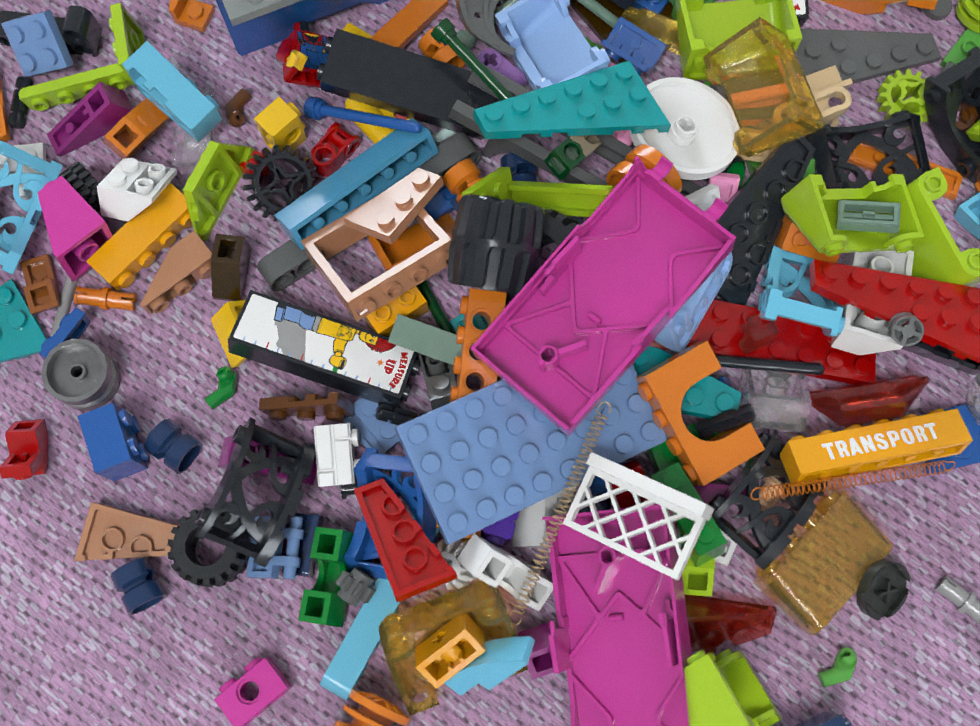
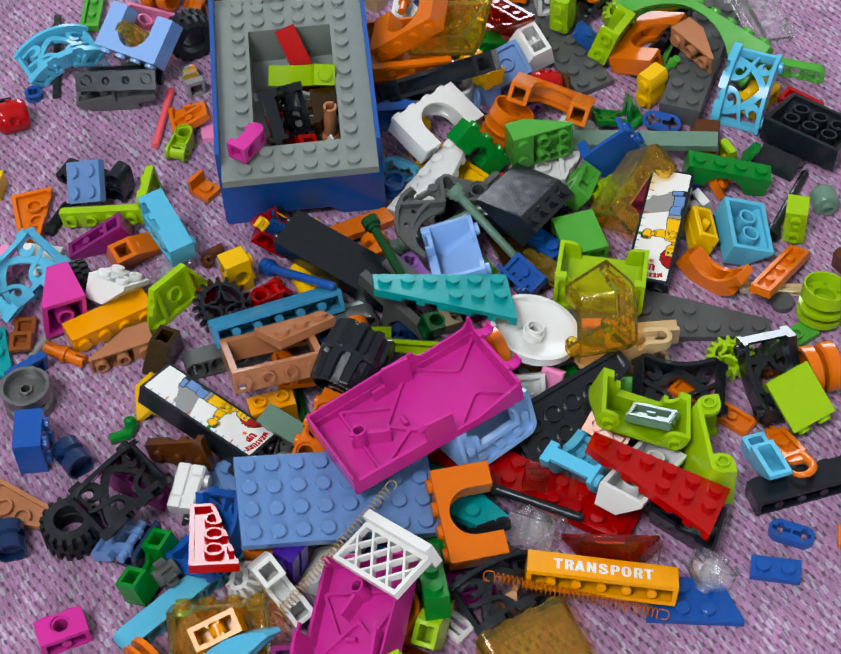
camera: 20 degrees right, 25 degrees down
(911, 332) = (639, 484): dark grey wheel -> none

